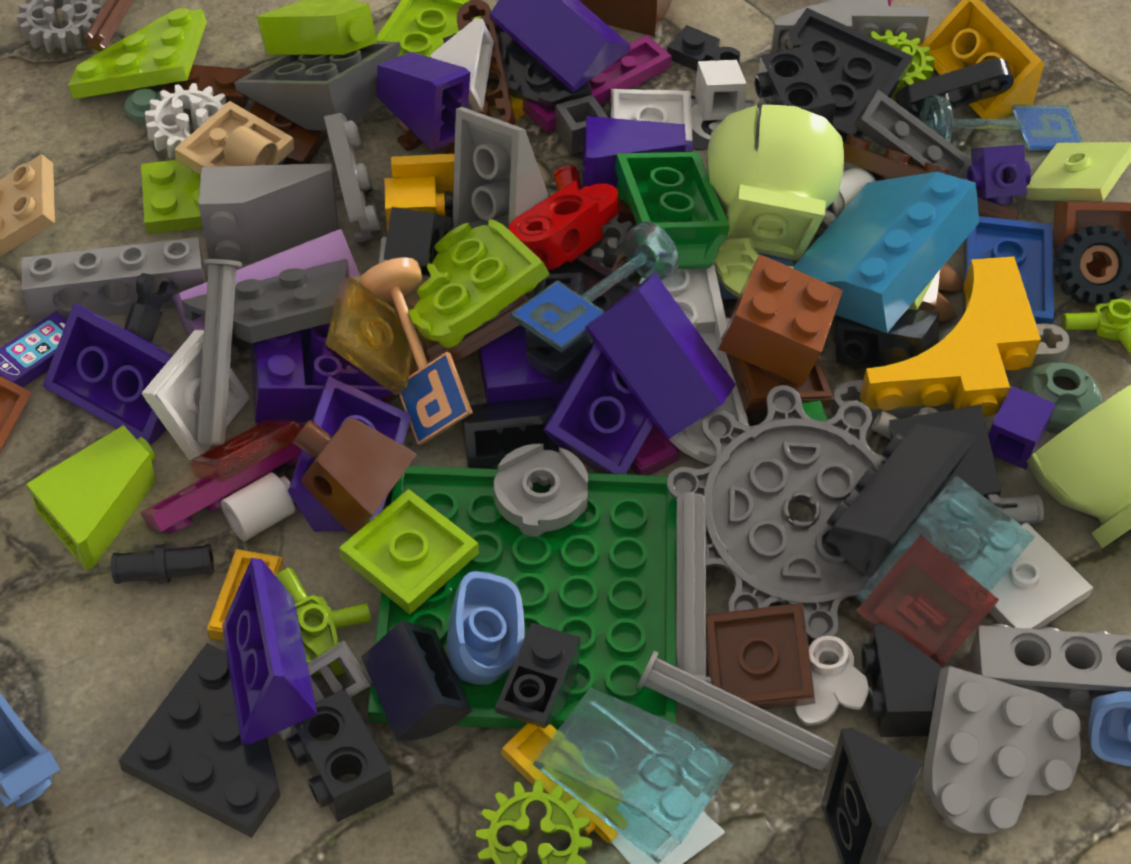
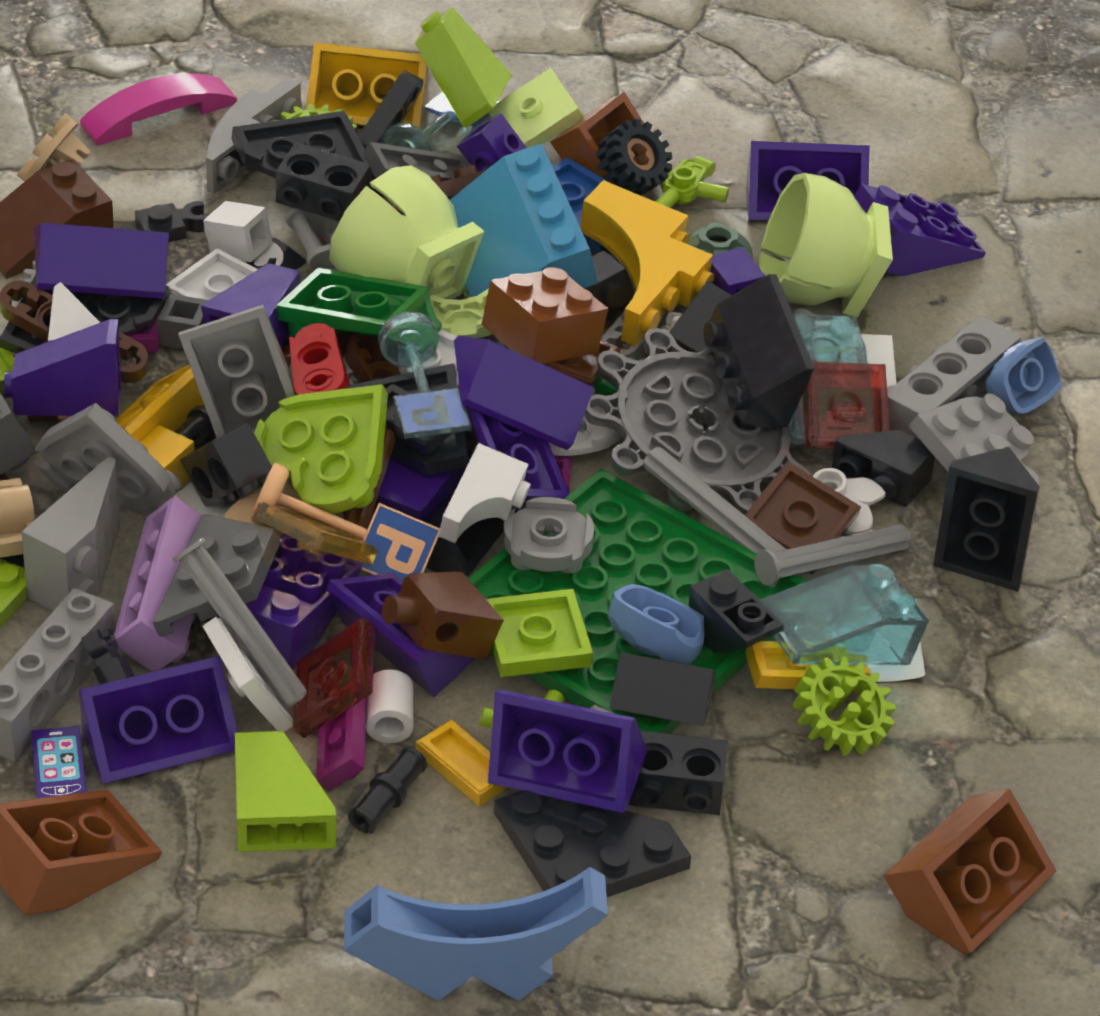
camera: 55 degrees left, 10 degrees down
(514, 404) = (486, 490): none -> white arch
(1060, 88) = (462, 65): none -> lime slope

